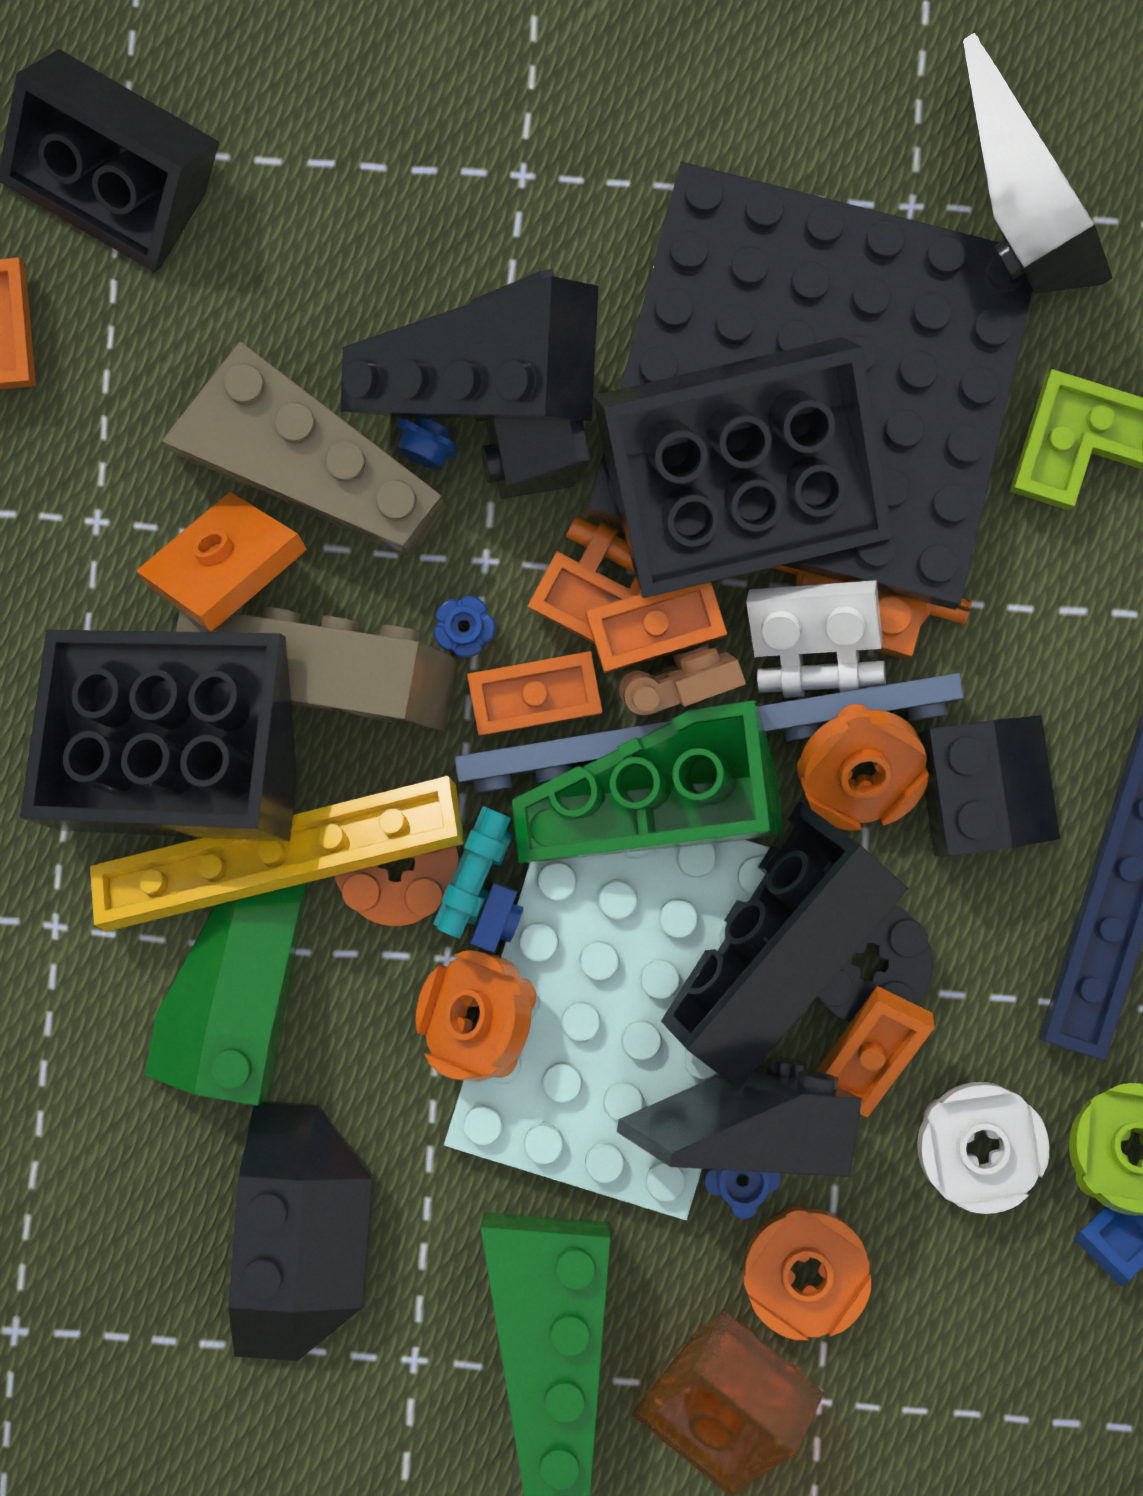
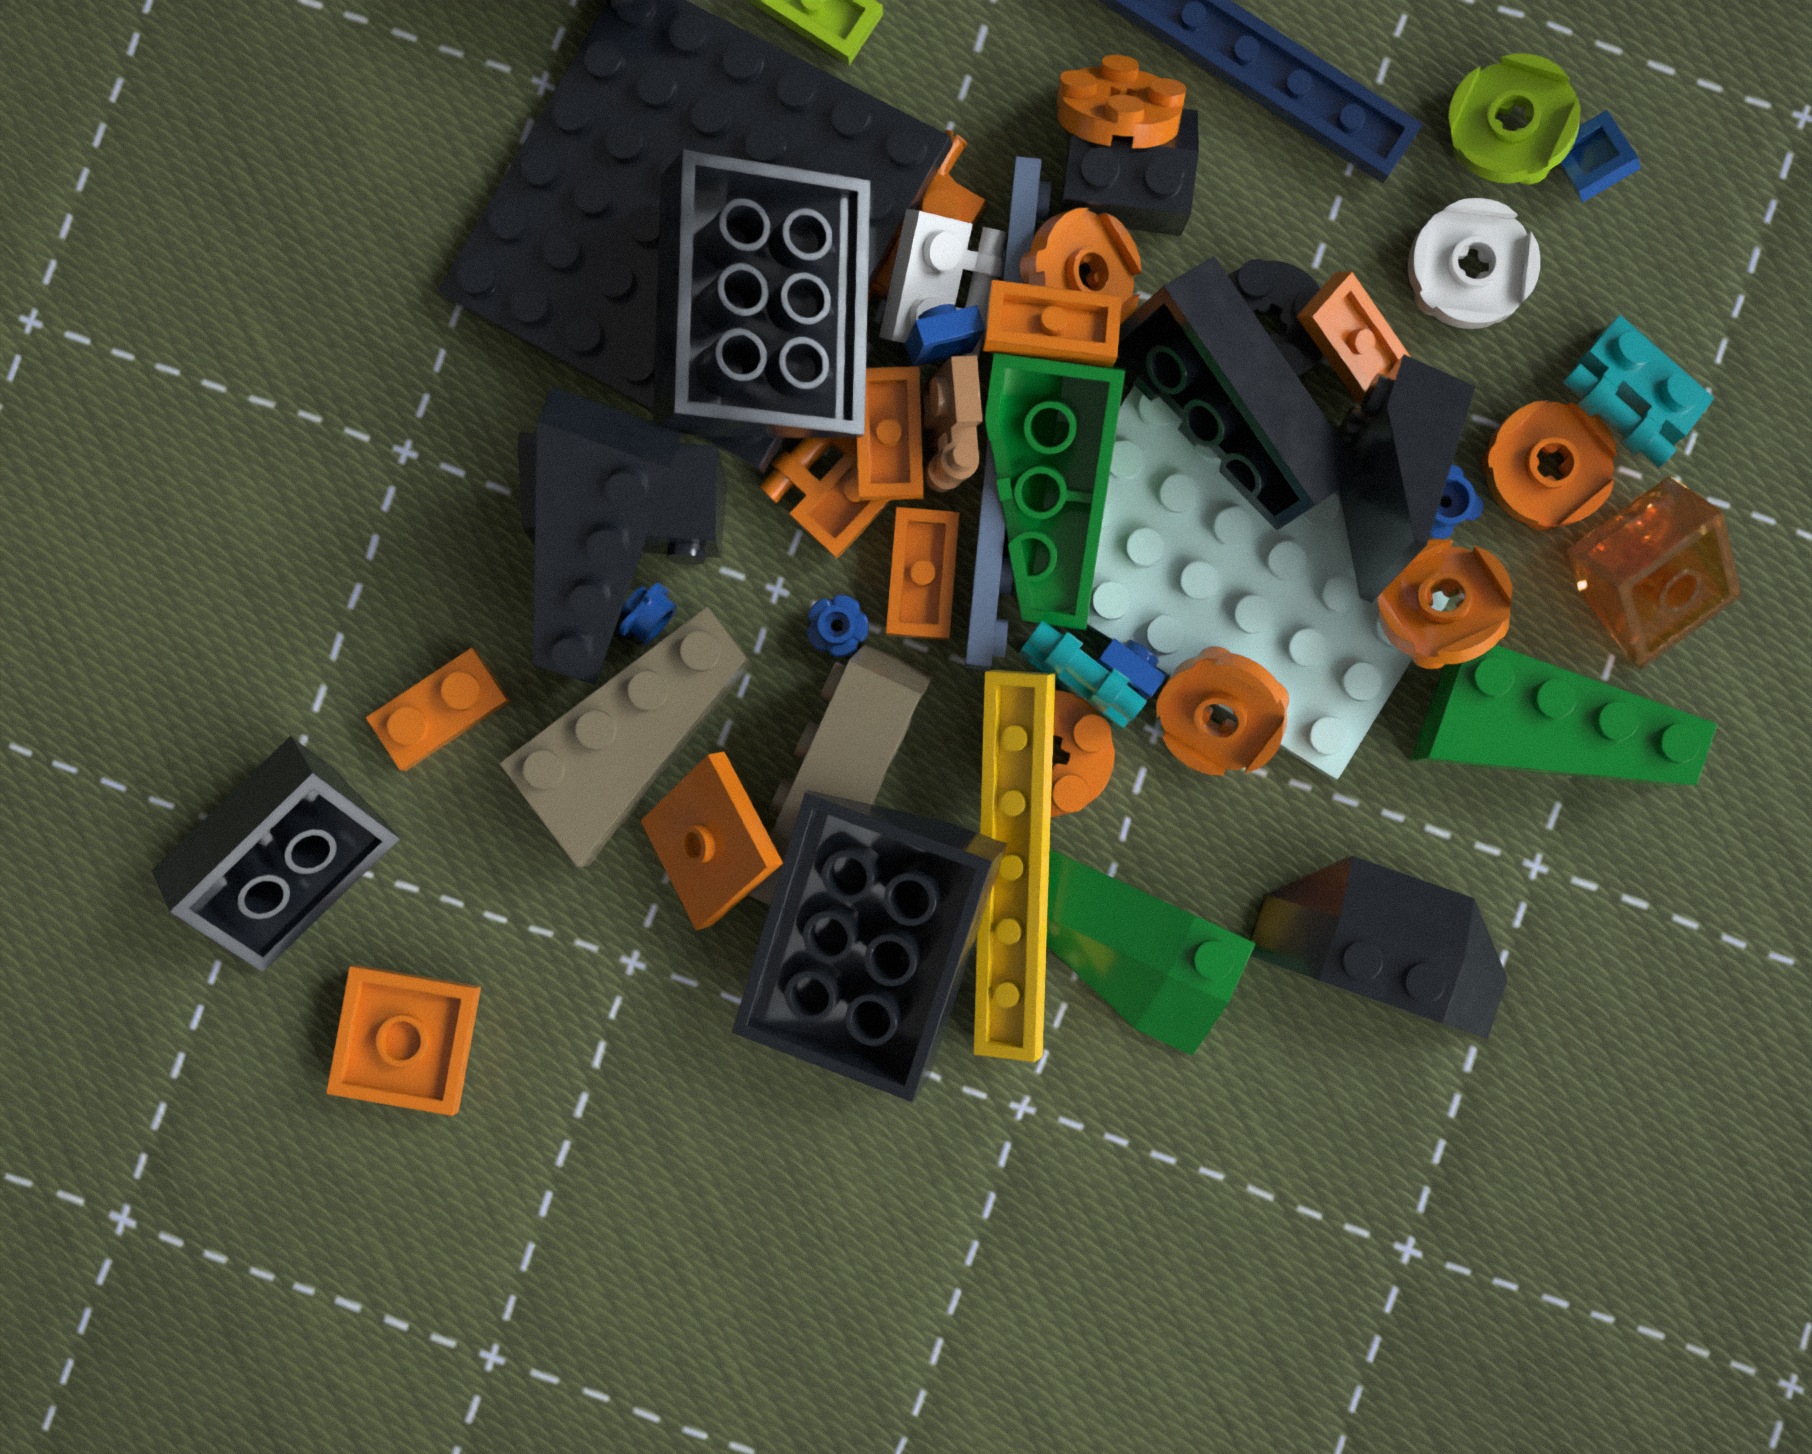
camera: 75 degrees left, 0 degrees up
(285, 274) = (438, 709): none -> orange plate
(607, 1228) = (1454, 635): none -> orange plate
(763, 648) = (944, 333): none -> blue plate
(798, 749) = (1052, 323): none -> orange plate
(911, 1347) = (1637, 391): none -> teal plate
(1040, 759) = (1120, 102): none -> orange plate

